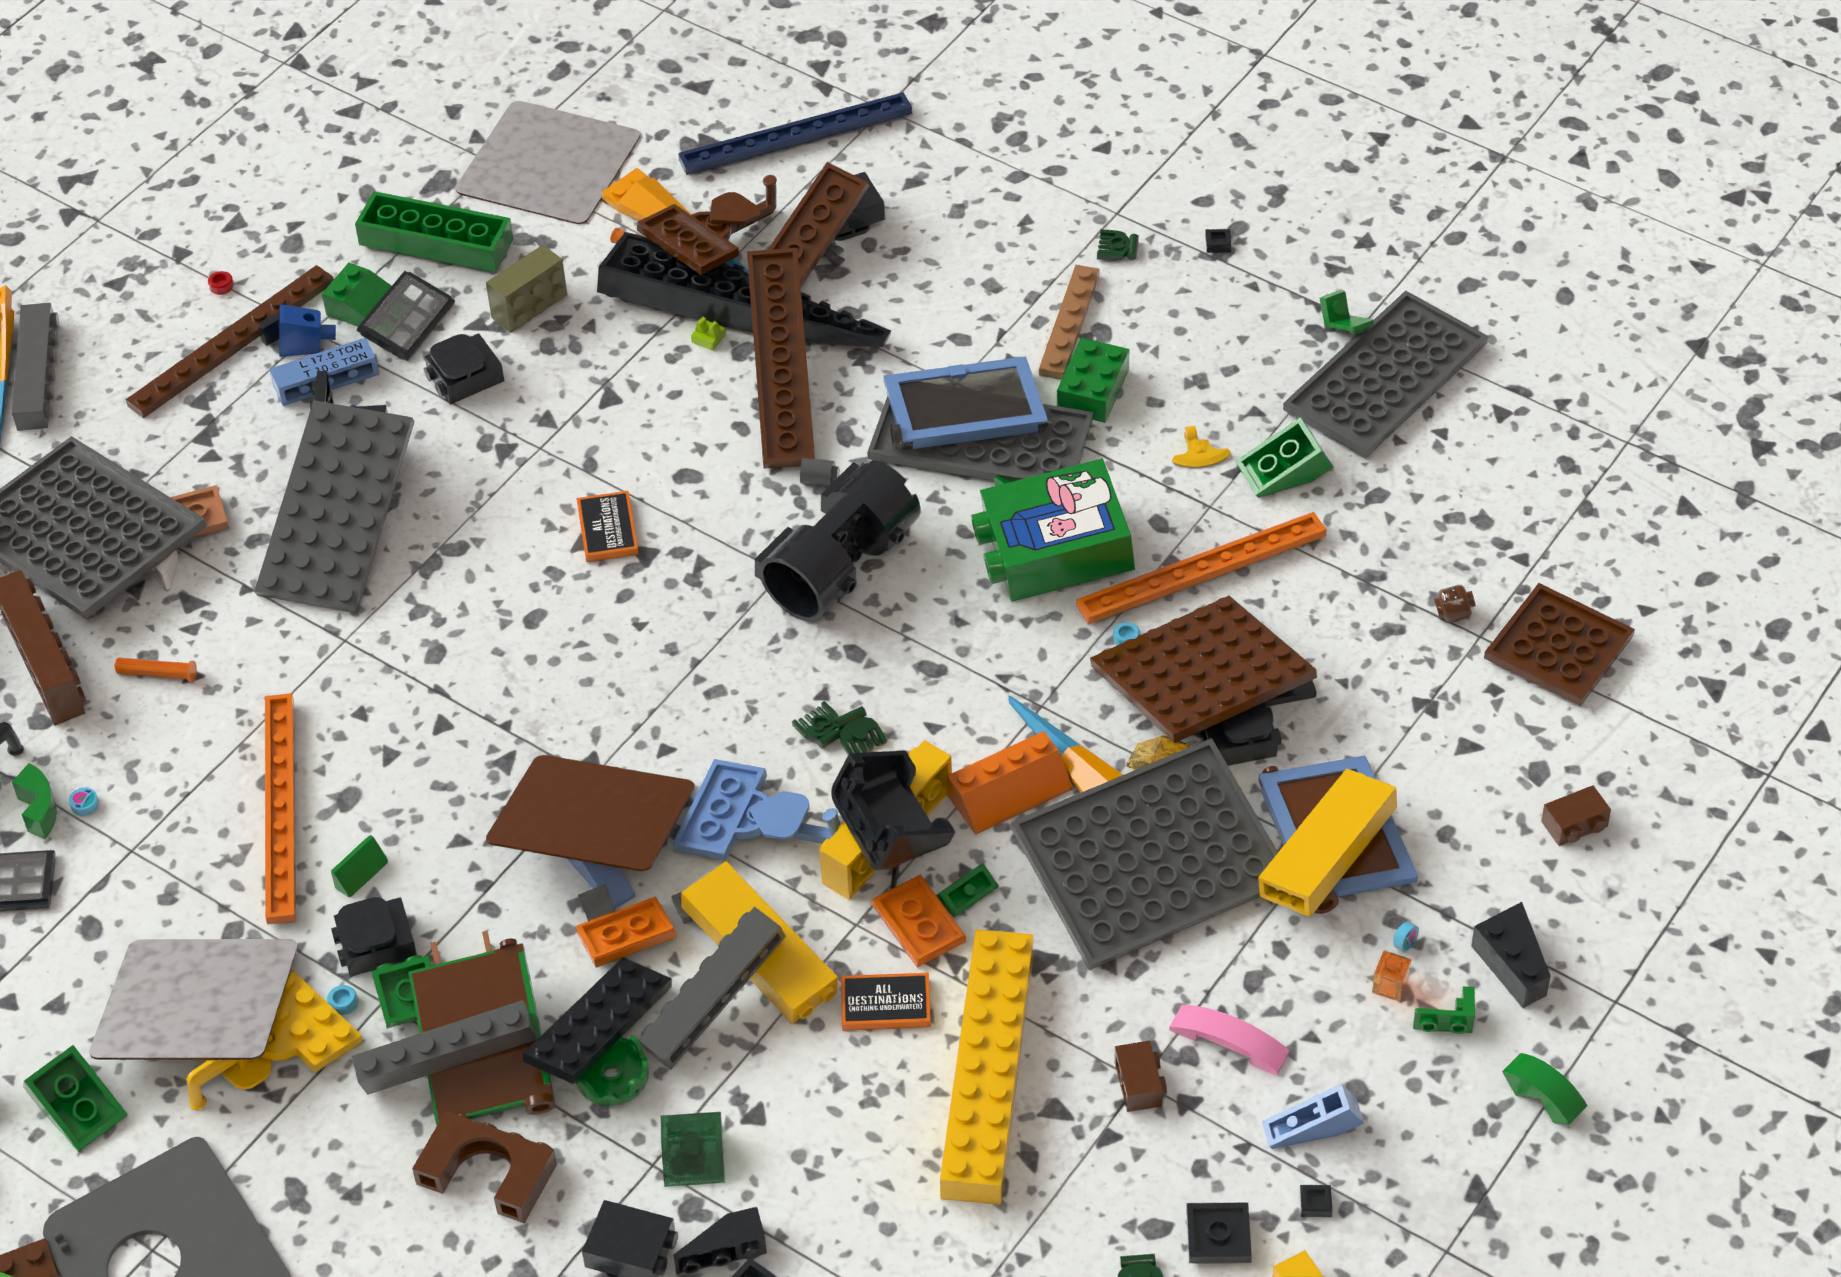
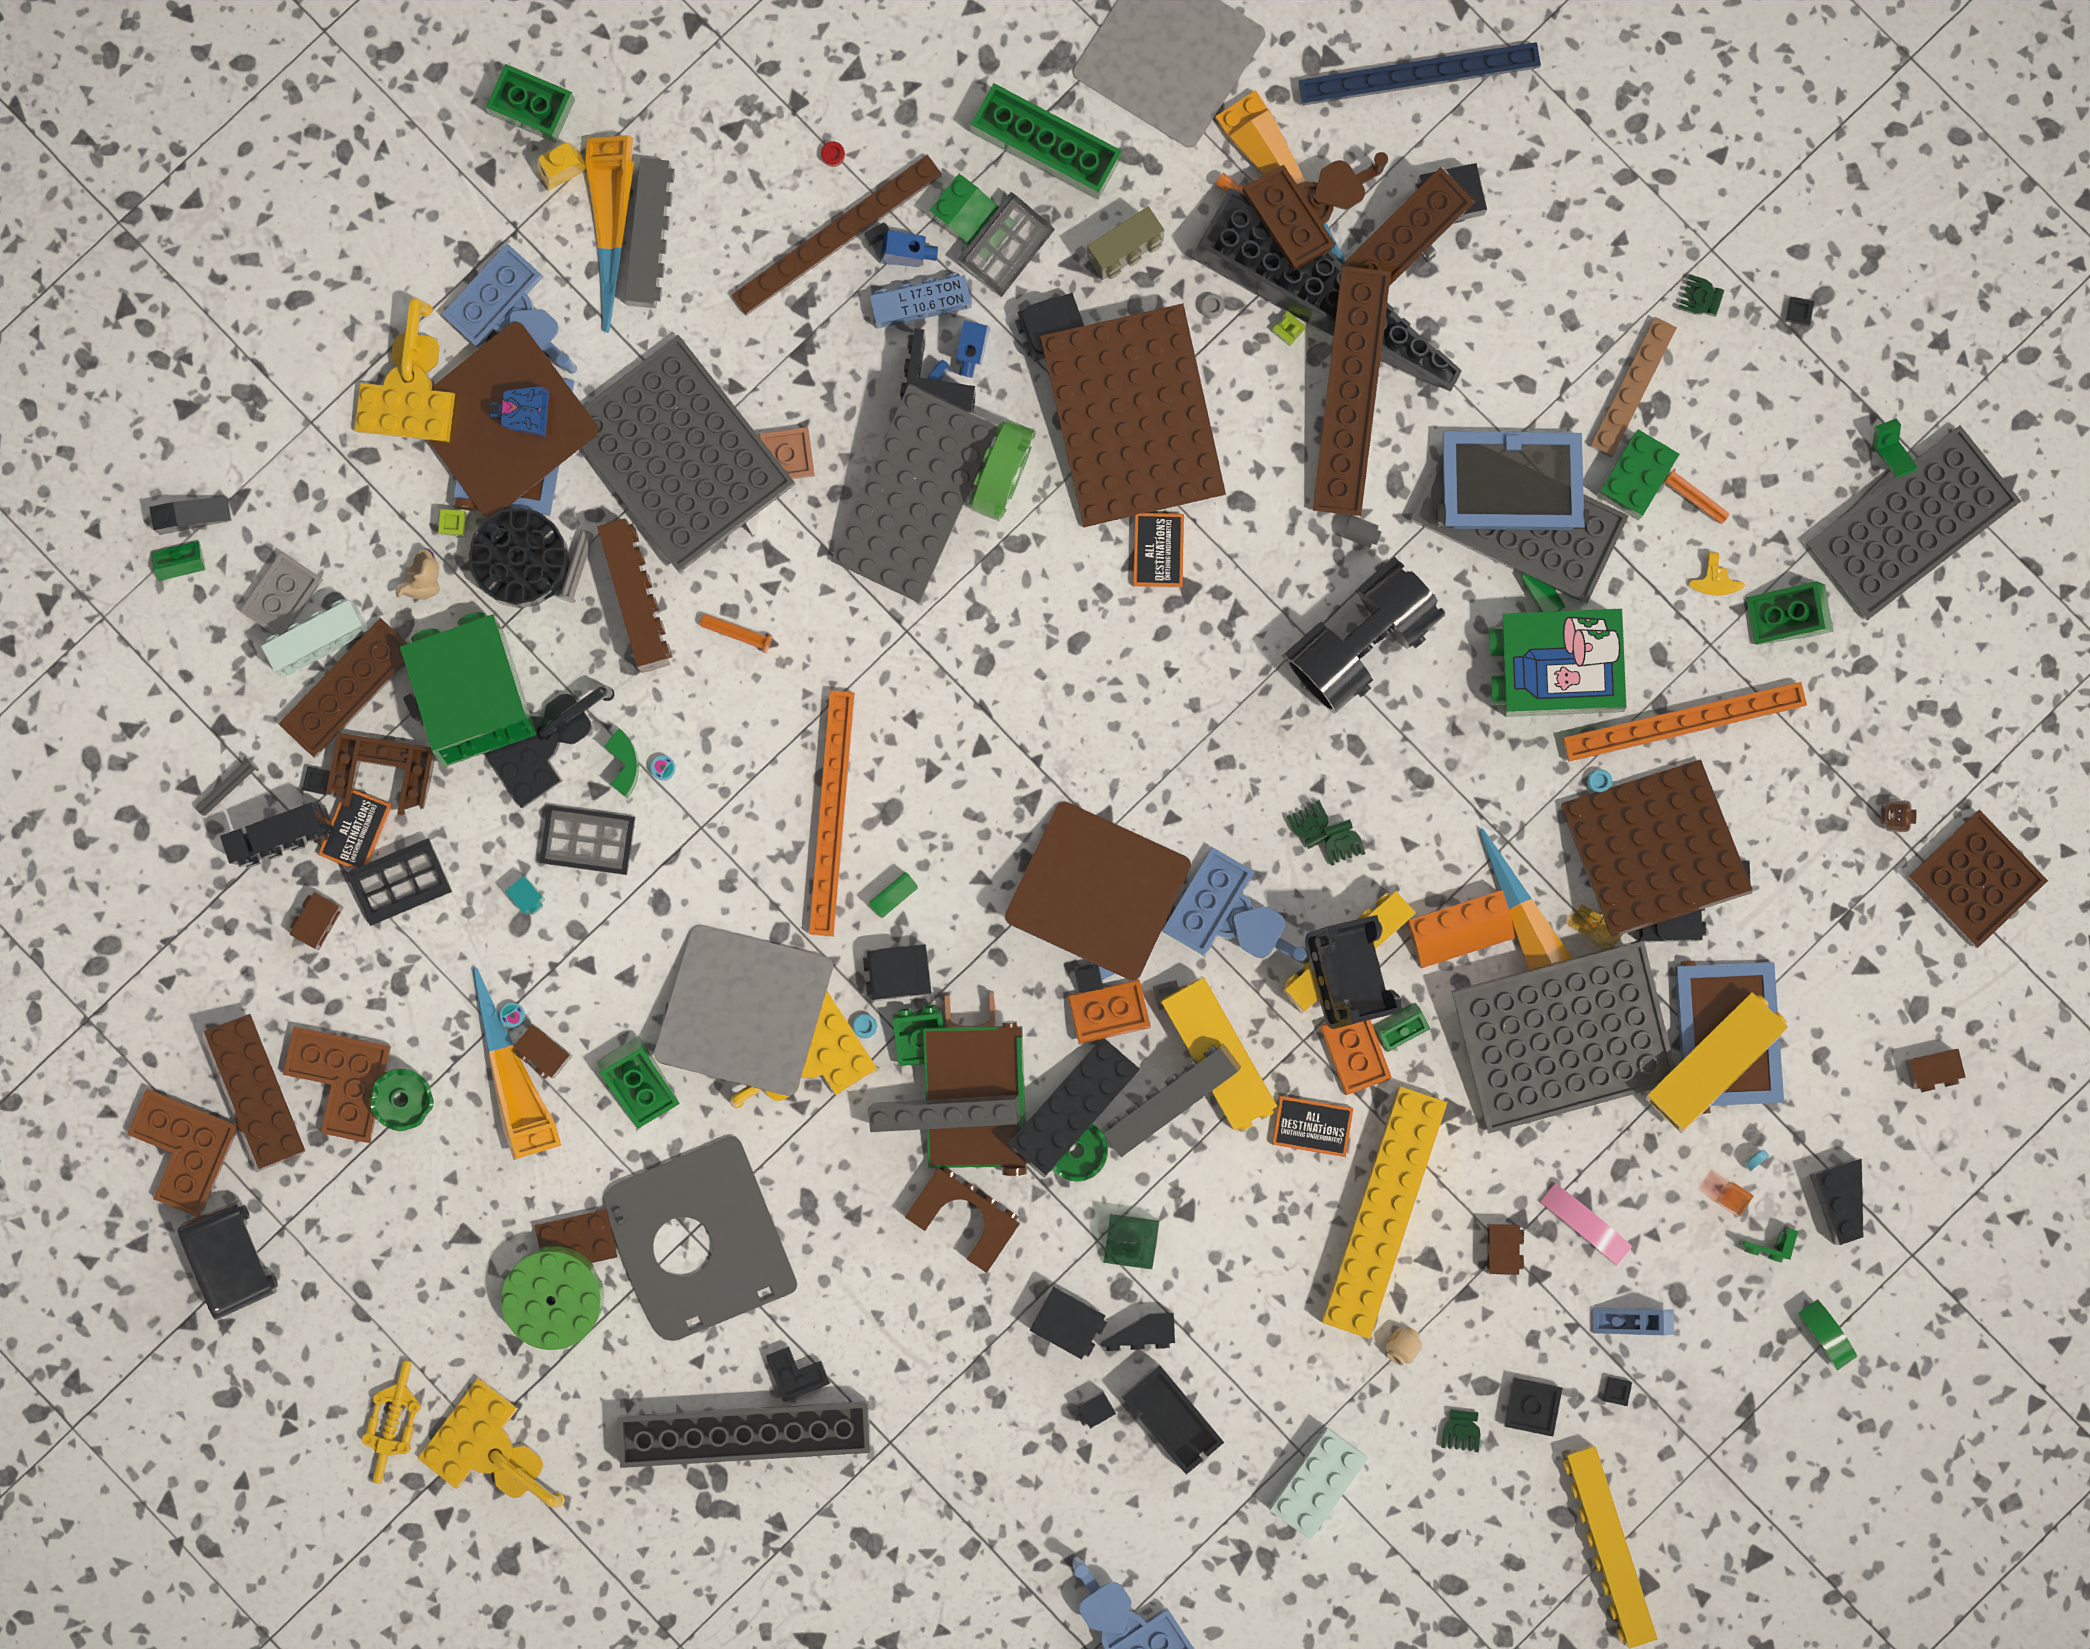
camera: 10 degrees right, 35 degrees up
(386, 393) = (971, 335): none -> blue torso
(424, 465) = (1003, 469): none -> bright green piece
(558, 416) = (1133, 415): none -> reddish brown plate
(626, 331) = (1212, 306): none -> light grey tile
(1045, 1196) = (1403, 1346): none -> tan head
(1158, 390) = (1696, 497): none -> orange axle

